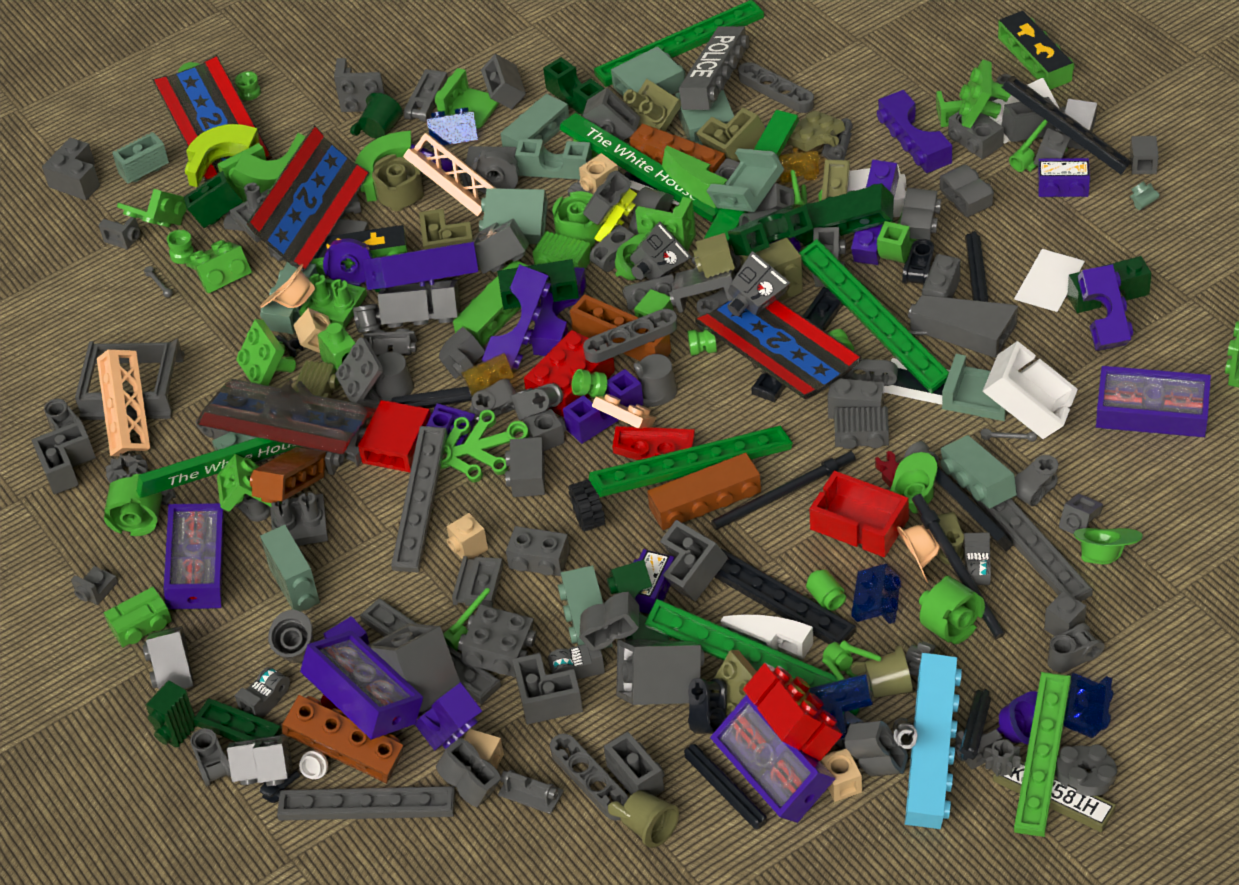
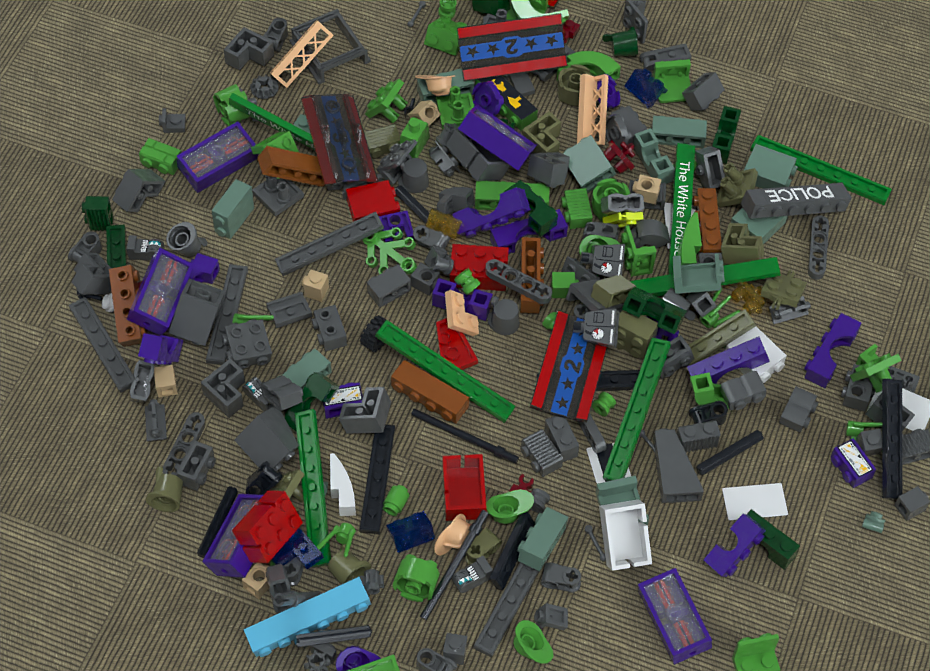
camera: 50 degrees right, 10 degrees up
(527, 178) = (613, 150): none -> dark red hips
(851, 211) = (705, 346): dark green brick -> none

